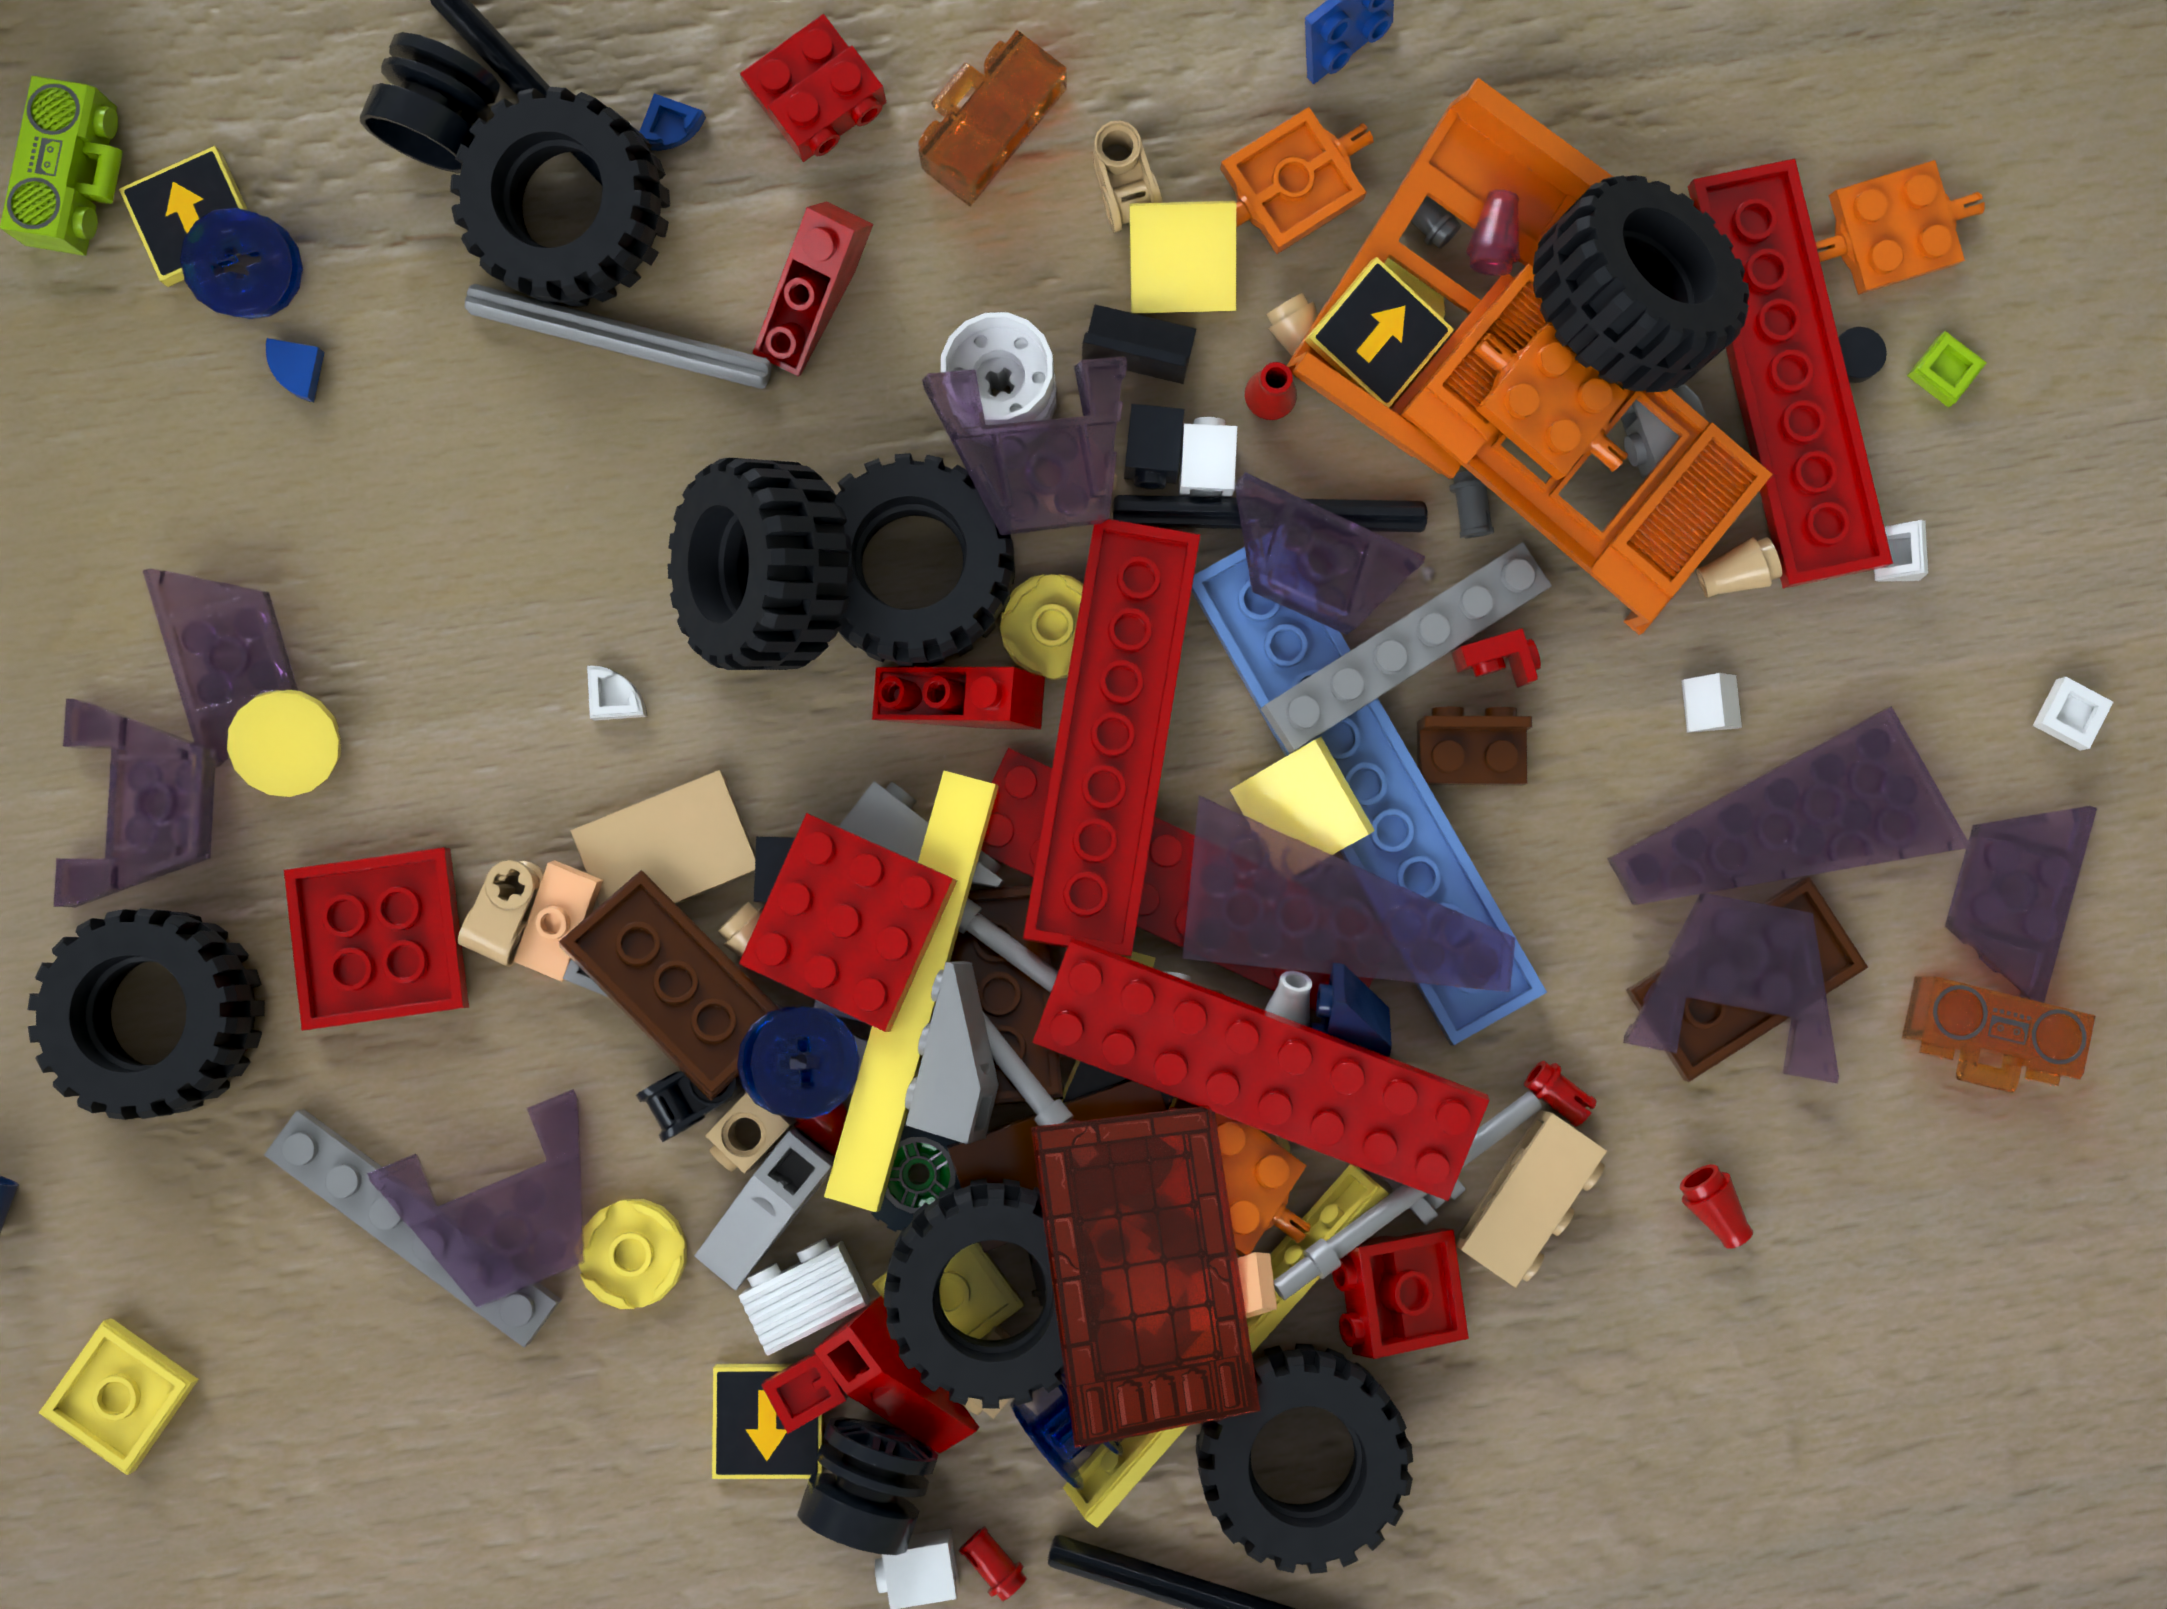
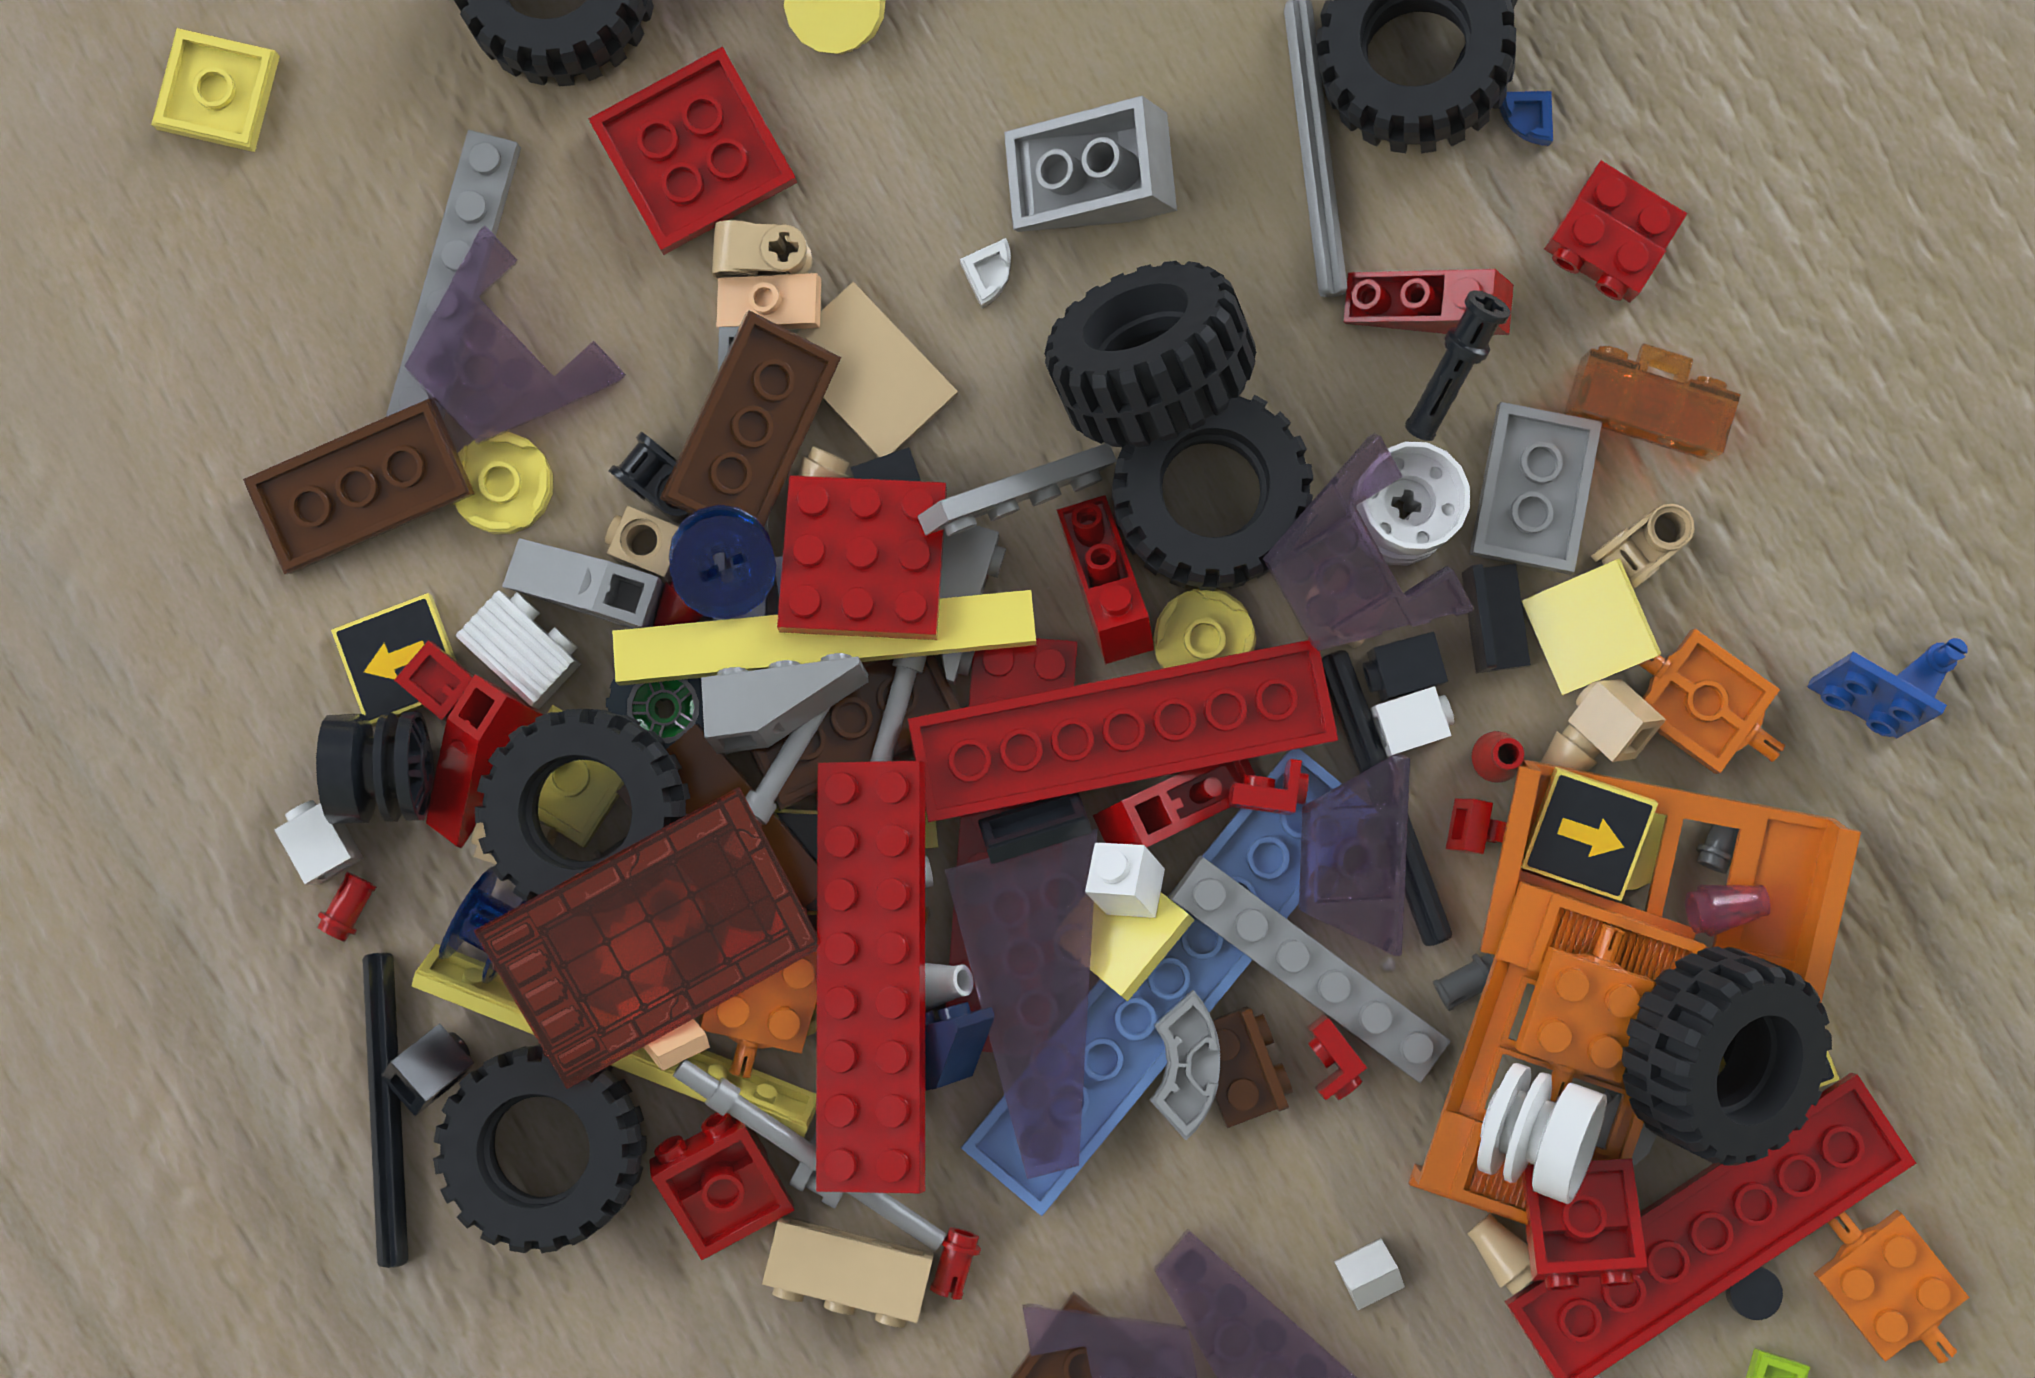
camera: 70 degrees right, 0 degrees up
(551, 556) = (1091, 167): none -> light grey slope
(579, 1398) = (359, 486): none -> reddish brown tile
(843, 765) = (1002, 496): none -> light grey plate
(871, 264) = (1465, 347): none -> black pin
(1029, 257) = (1535, 488): none -> light grey plate
(1174, 856) = (1034, 827): none -> black tile
(1184, 1540) = (428, 1068): none -> black brick
(1204, 717) = (1171, 805): none -> red slope
(1225, 627) = (1260, 793): none -> red bracket
(1258, 788) = (1125, 880): none -> white brick
(1279, 268) = (1615, 719): none -> tan brick
(1329, 441) = (1472, 826): none -> red tile
(1455, 793) = (1191, 1064): none -> light grey tile
(1652, 483) = (1531, 1129): none -> white wheel
(1746, 479) = (1592, 1234): none -> red plate

